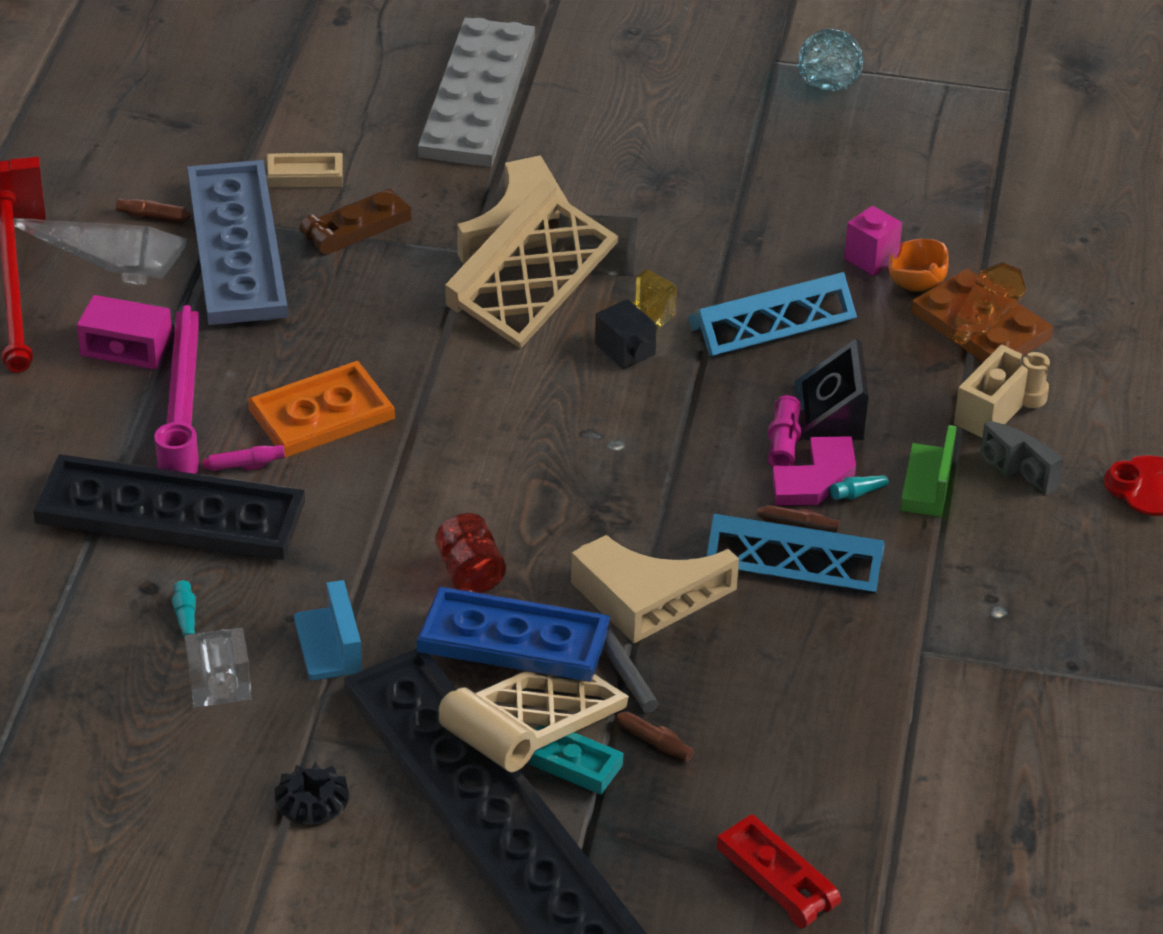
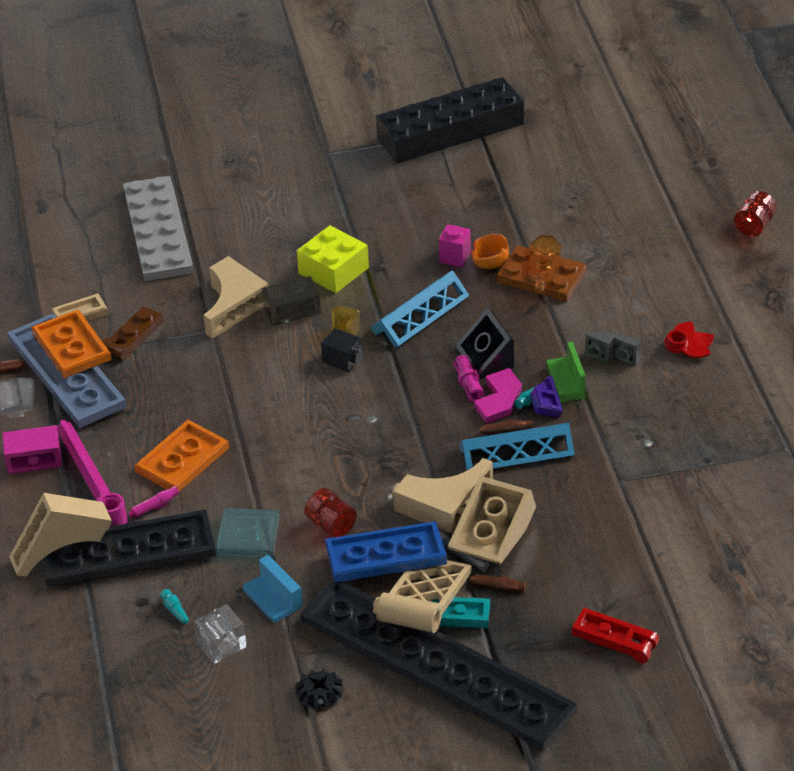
camera: 20 degrees left, 0 degrees up
(84, 439) = (55, 524): none -> tan arch
(259, 207) = (71, 343): none -> orange tile
(347, 542) = (248, 532): none -> clear light blue tile
(500, 252) = (244, 314): tan fence -> none
(688, 205) = (333, 259): none -> neon yellow brick
(692, 643) = (493, 520): none -> tan slope
(830, 60) = (365, 142): clear light blue piece -> none
(879, 497) = (546, 399): none -> dark purple tile
(973, 64) = (450, 119): none -> black brick
(1001, 389) = (580, 312): tan hinge -> none

